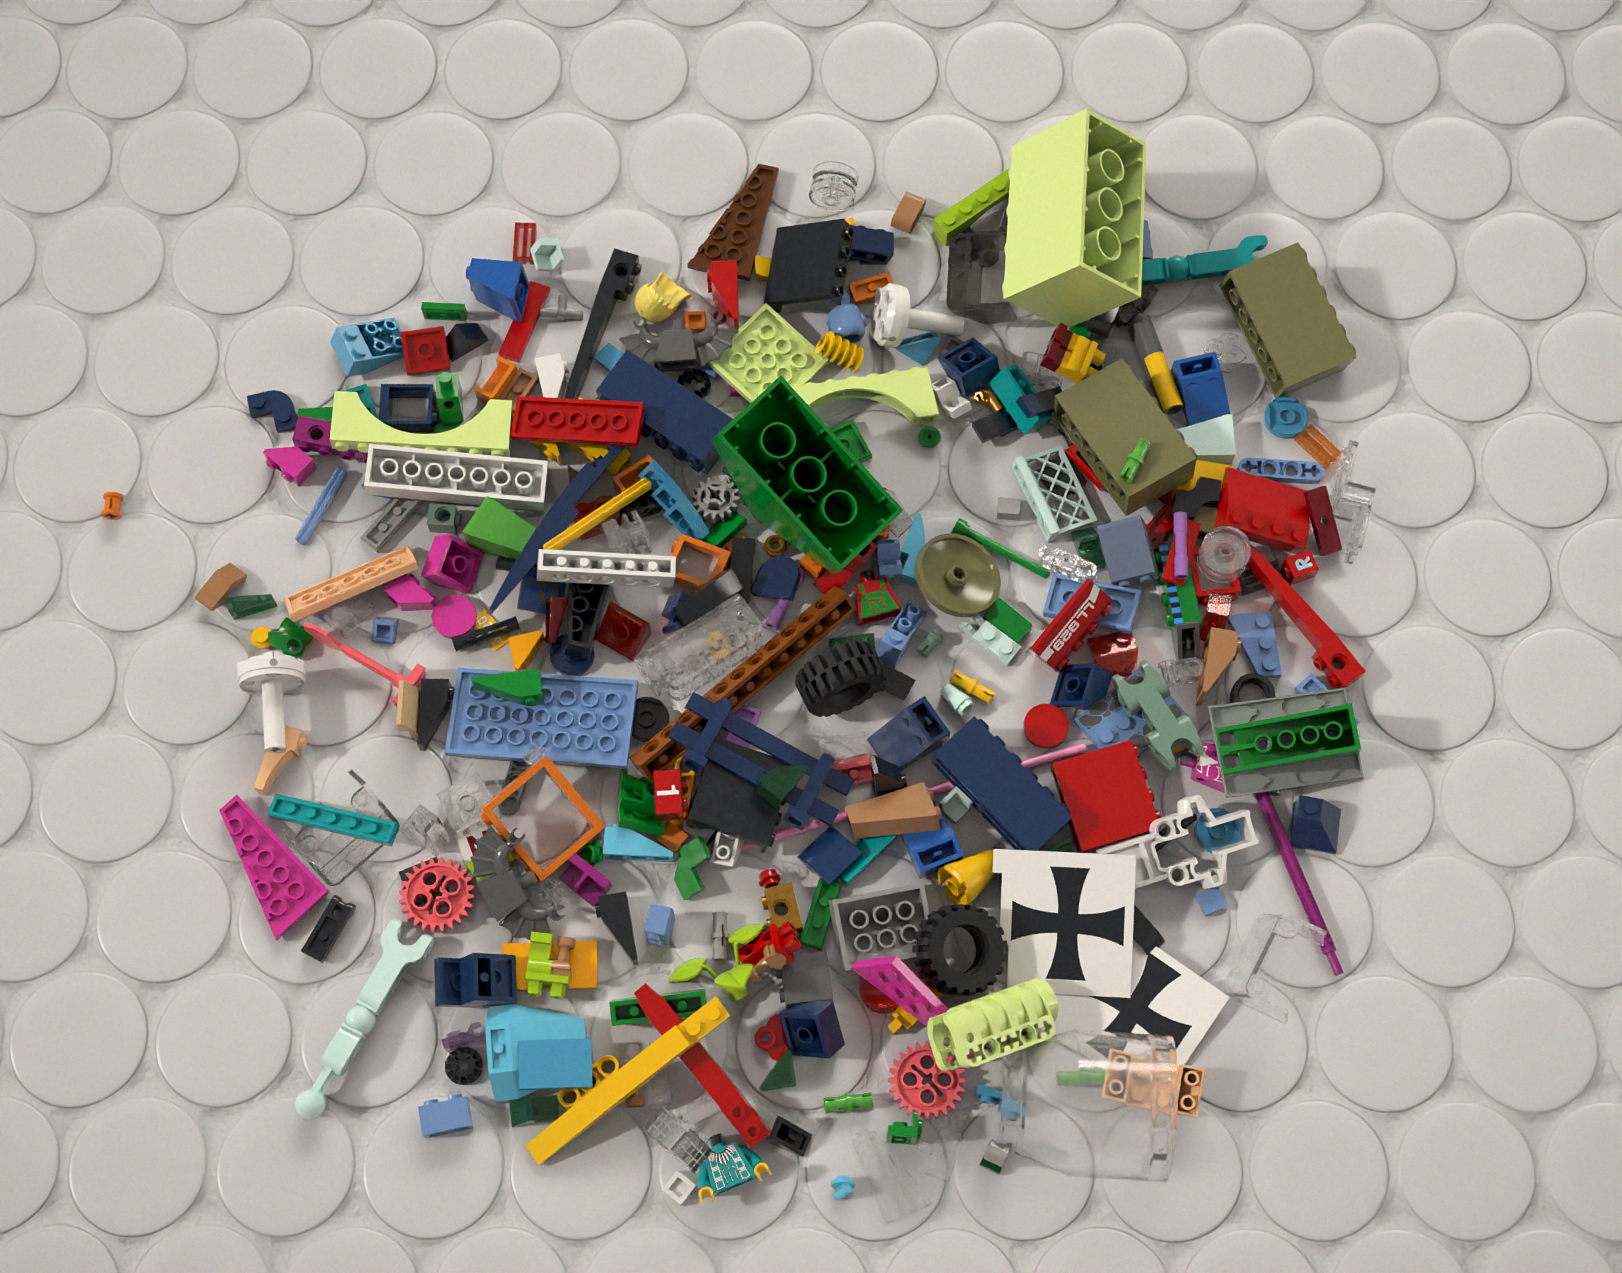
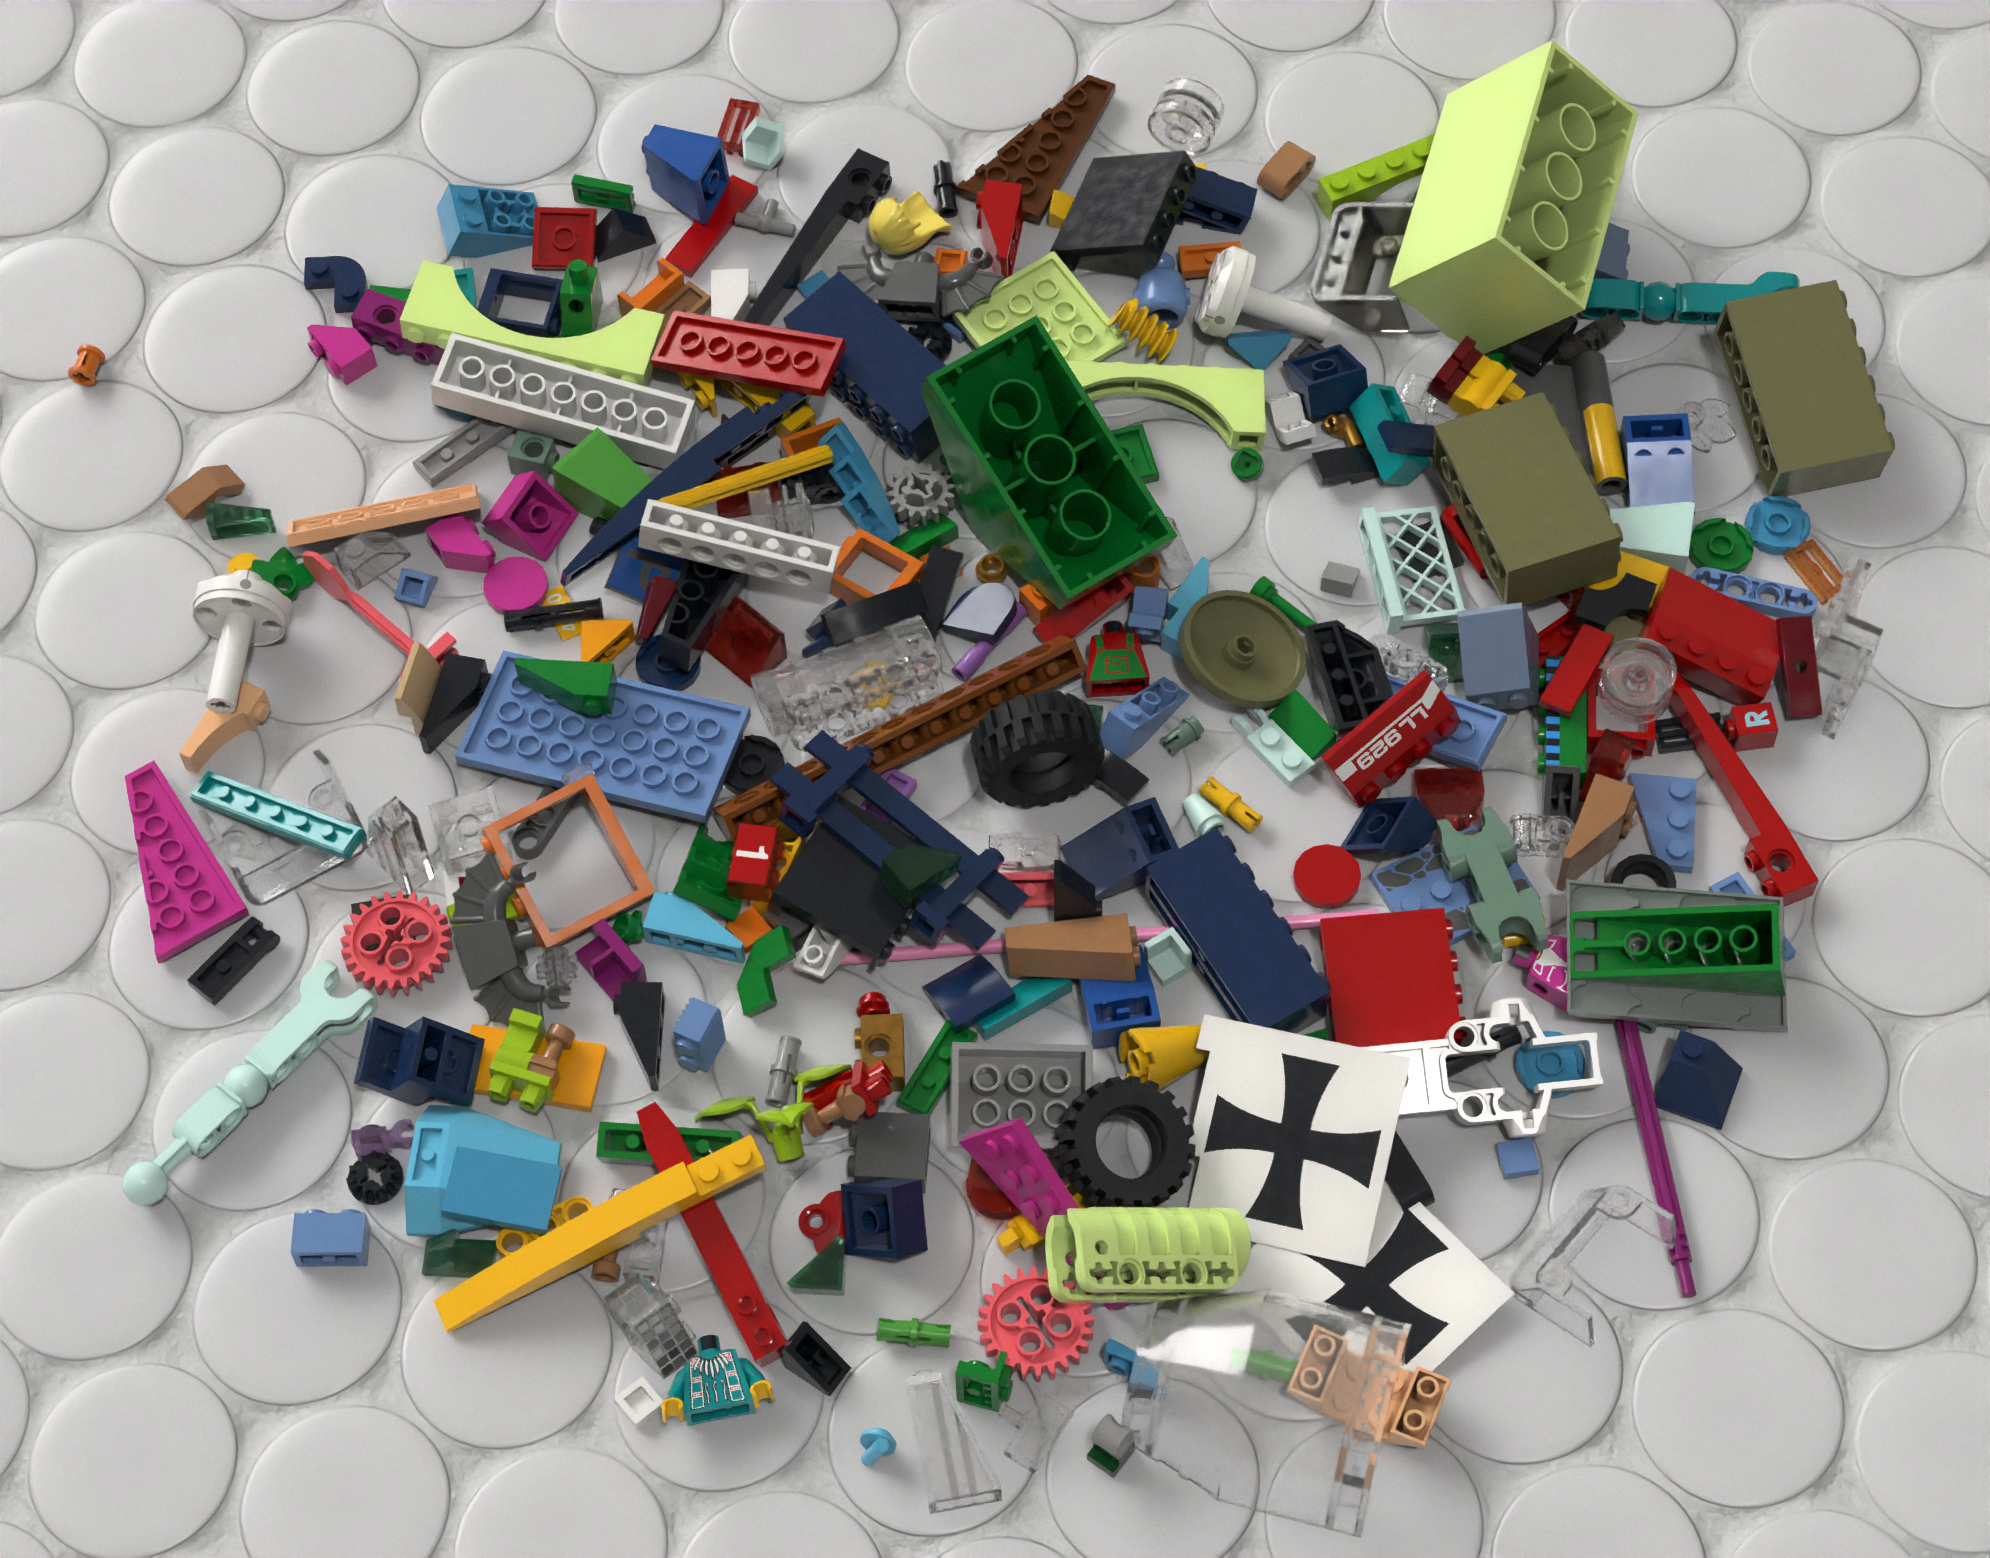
camera: 15 degrees right, 10 degrees down
(321, 506) = (369, 414): medium blue axle -> none
(679, 266) = (945, 189): none -> black axle
(1032, 584) = (1346, 674): none -> black wedge
(1135, 460) = (1528, 524): bright green pin -> none
(1181, 558) = (1572, 675): medium lavender piece -> none
(1253, 439) = (1721, 546): none -> green tile

